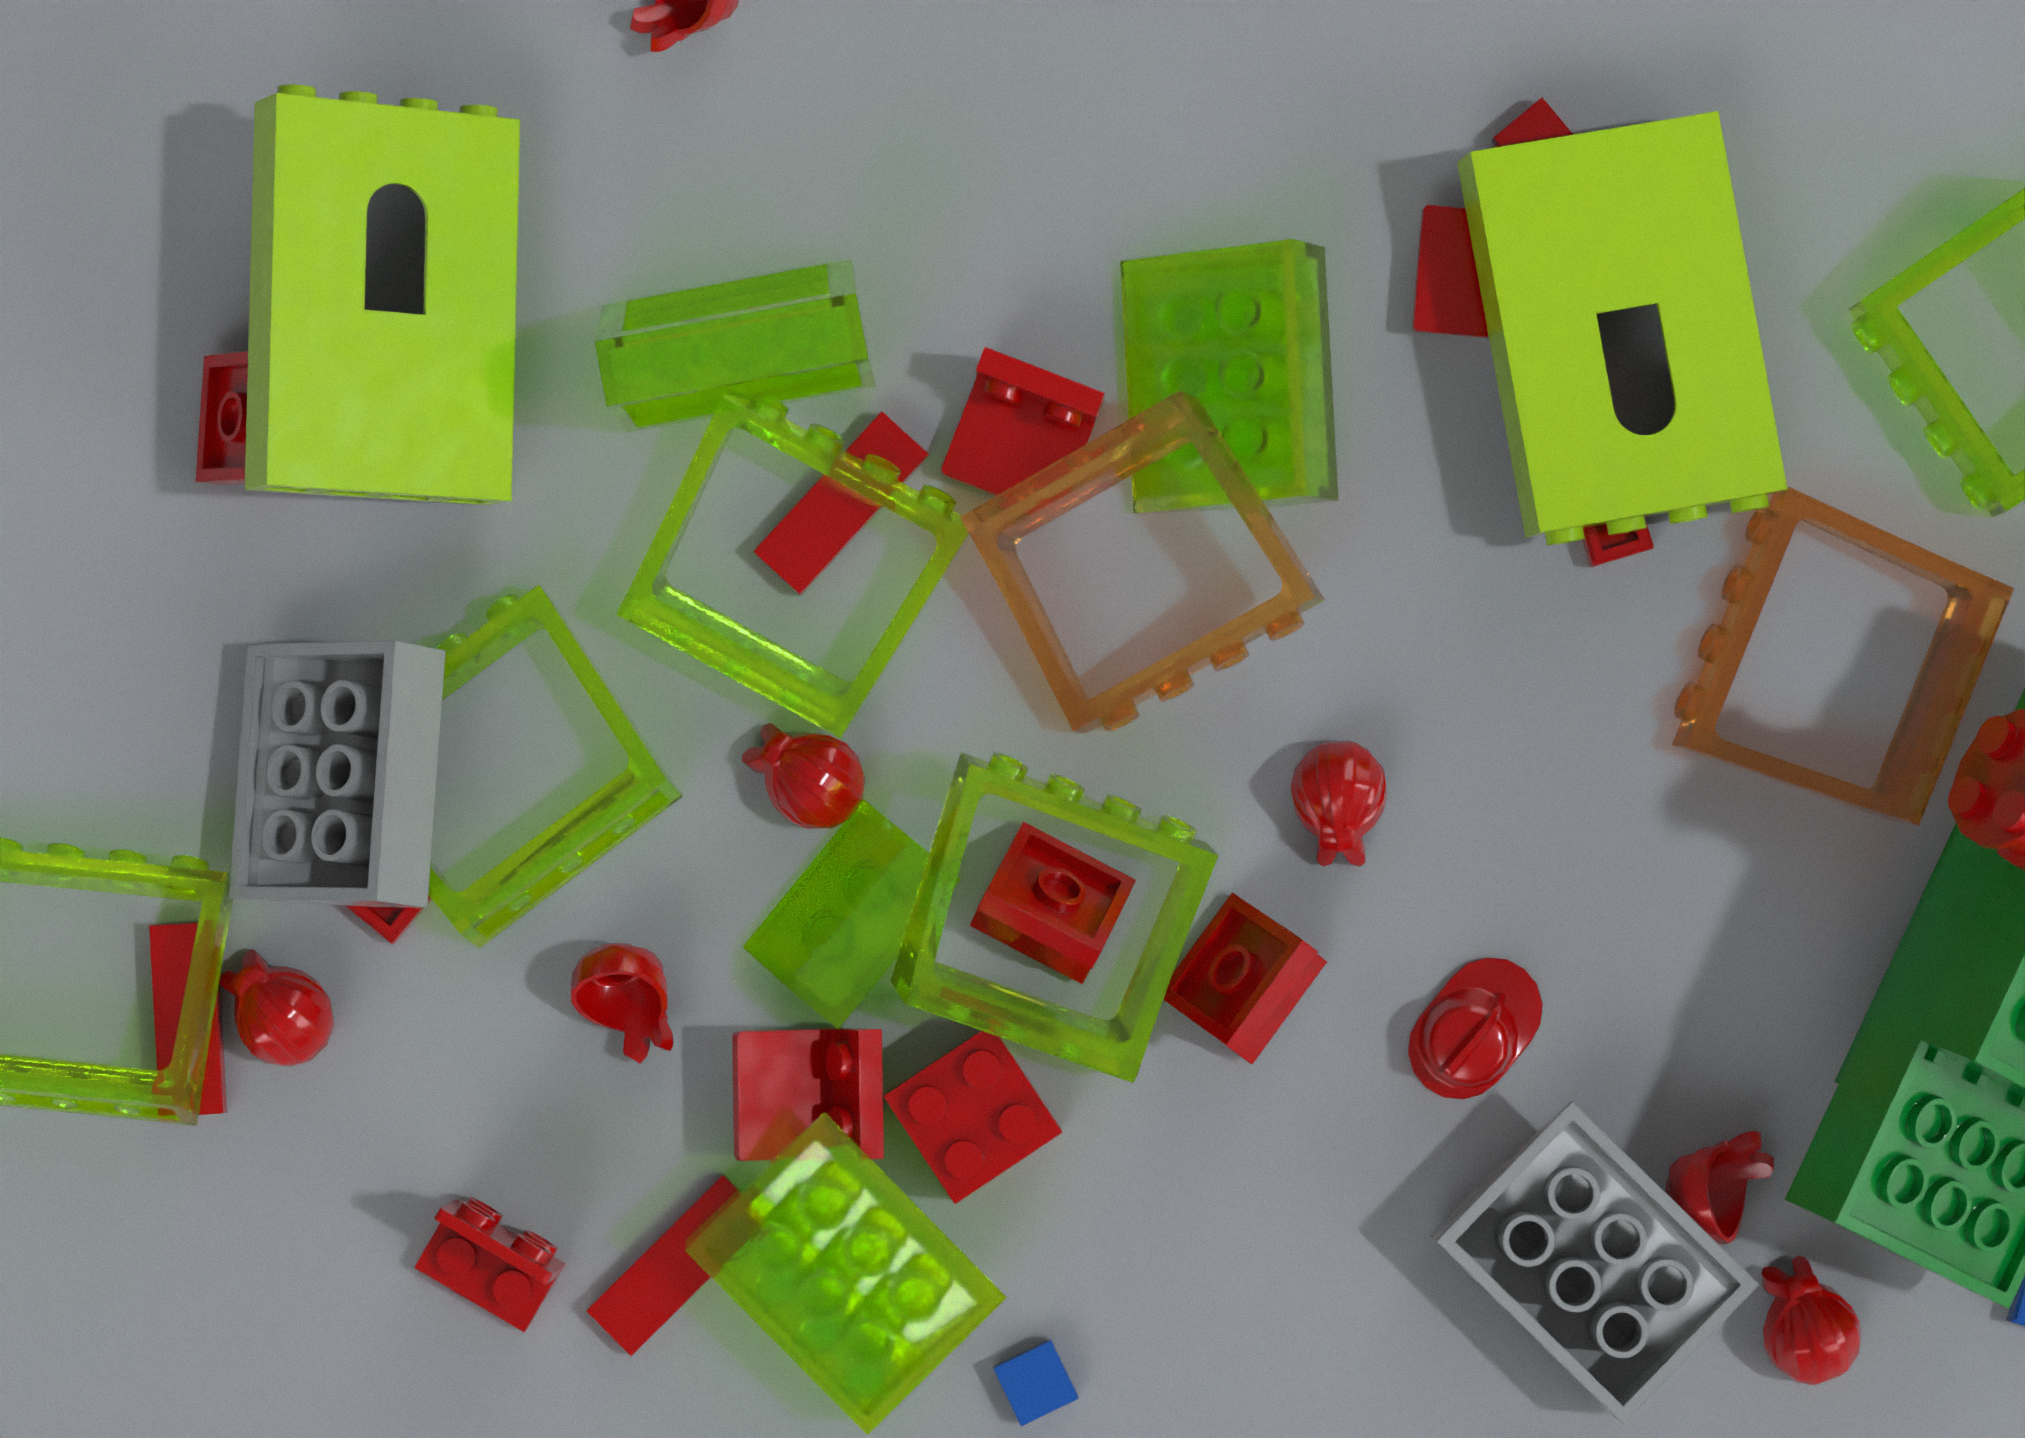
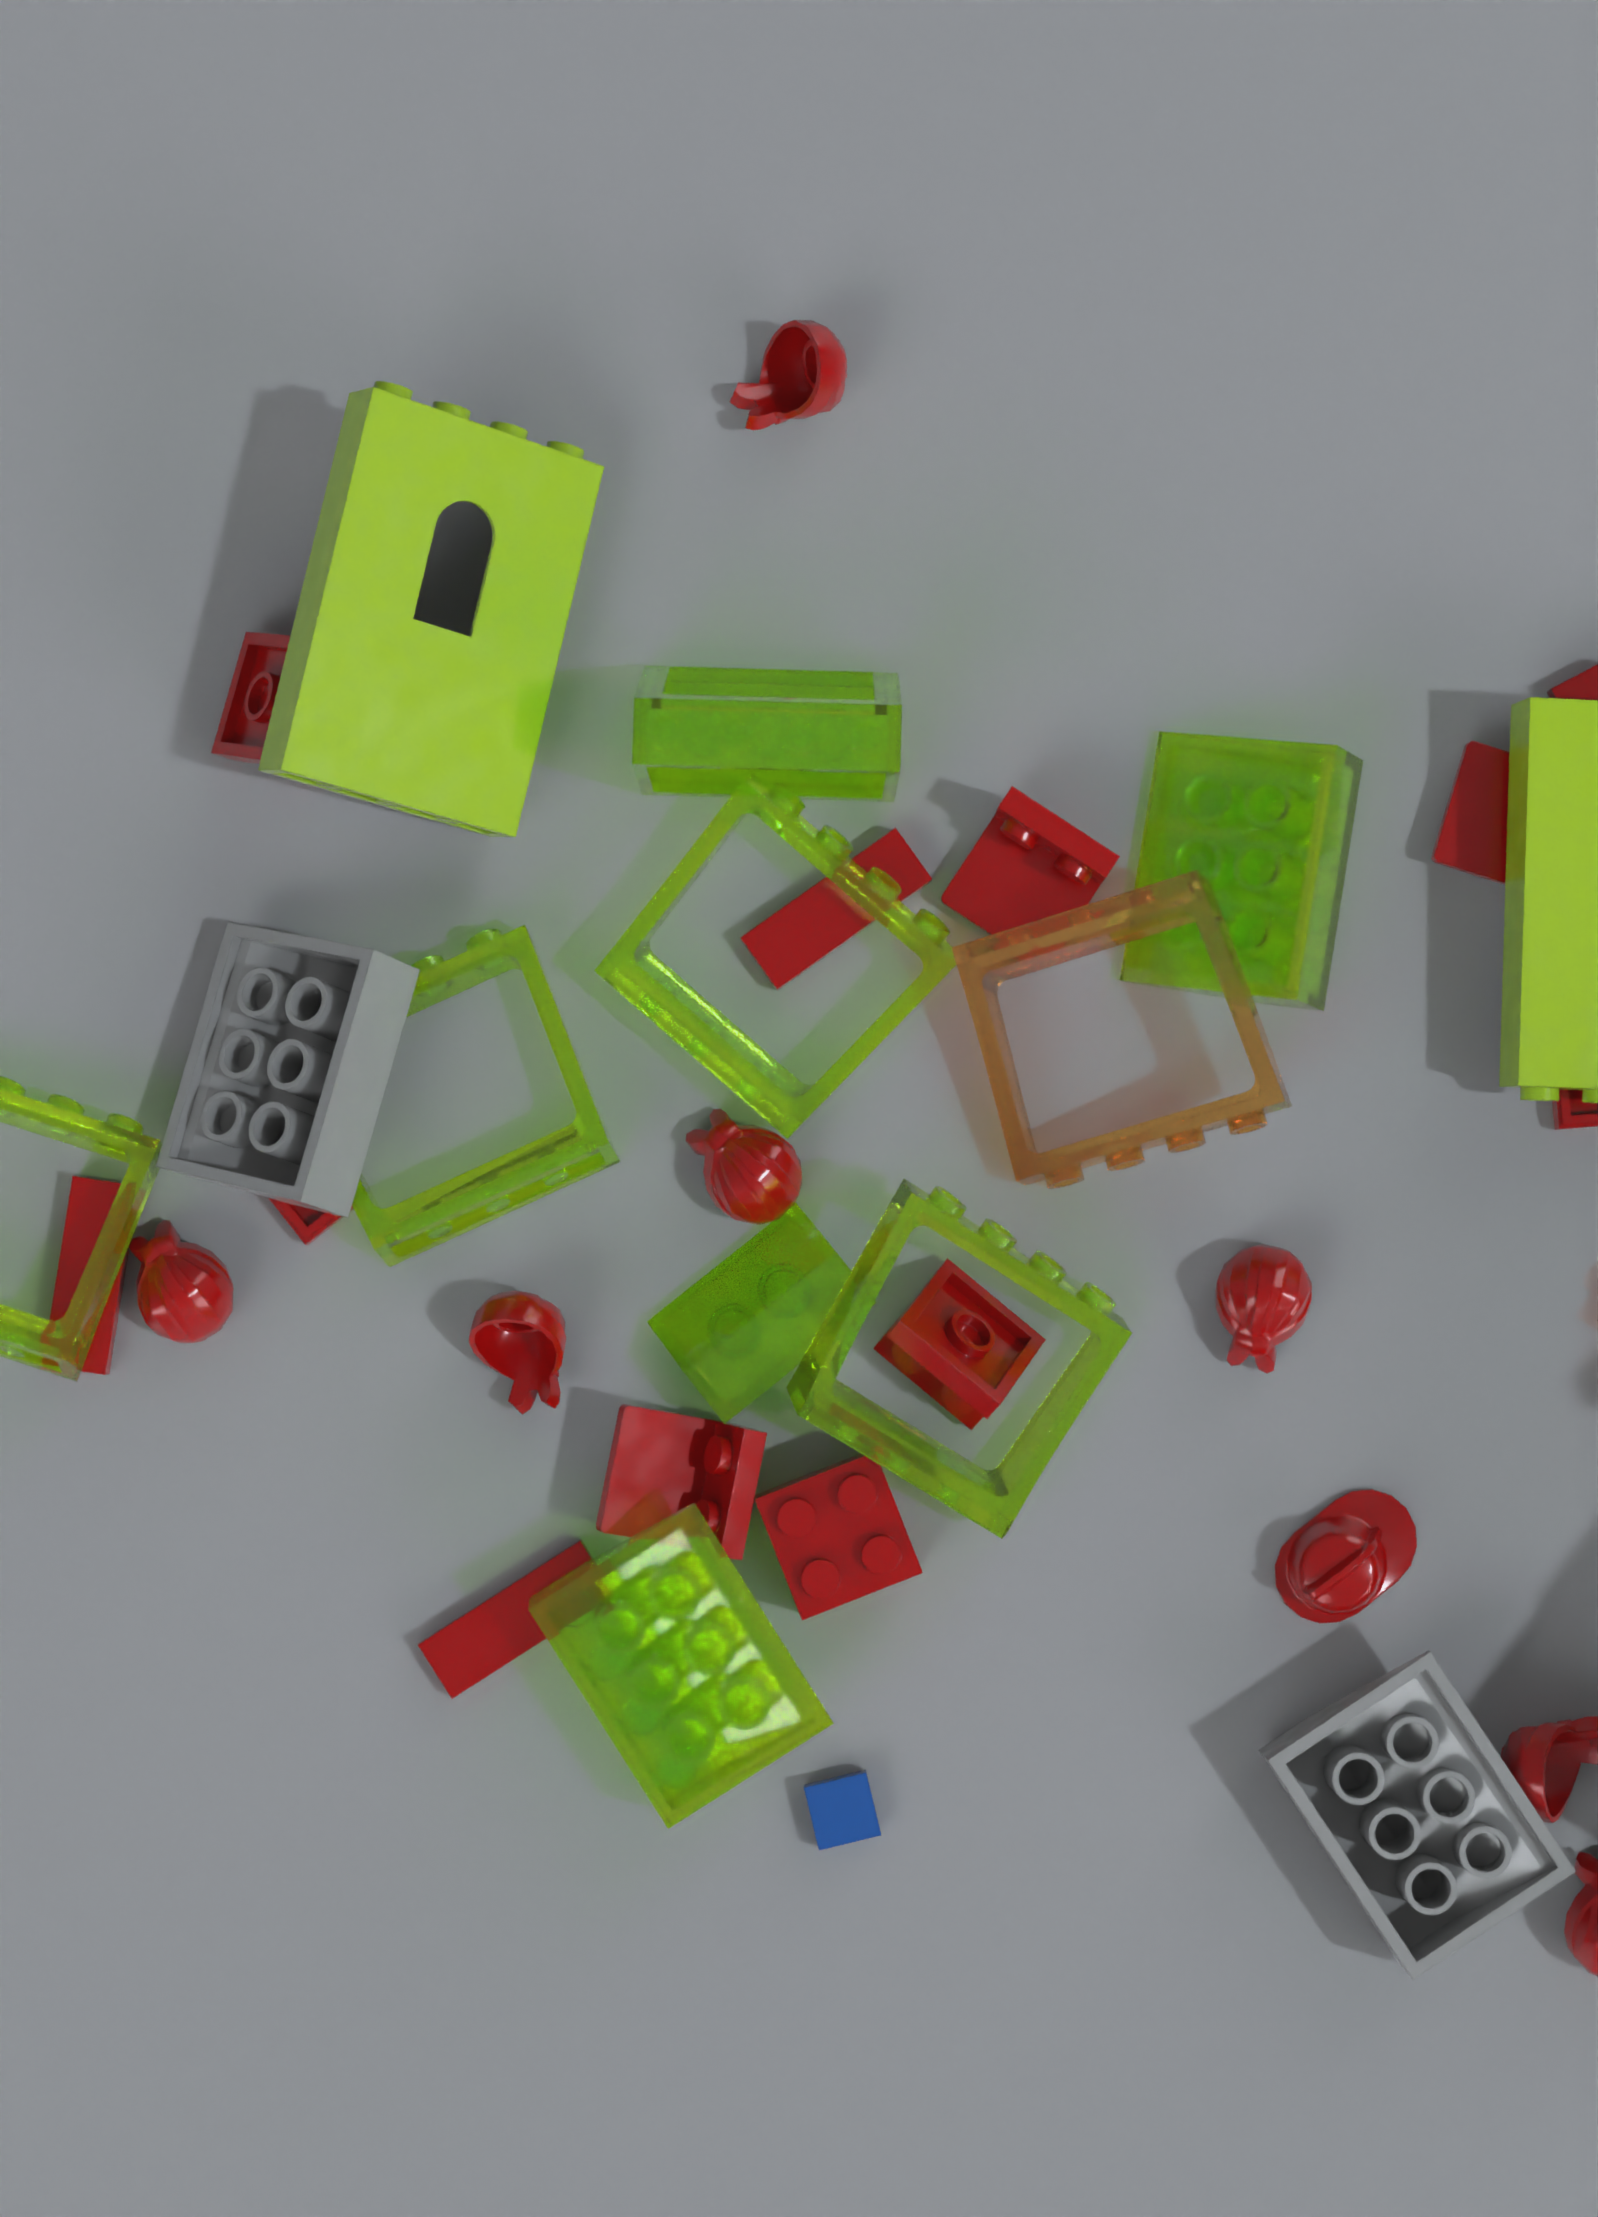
camera: 10 degrees right, 0 degrees up
(489, 1263) = (334, 1577): red bracket -> none
(1243, 977) = (1130, 1457): red bracket -> none

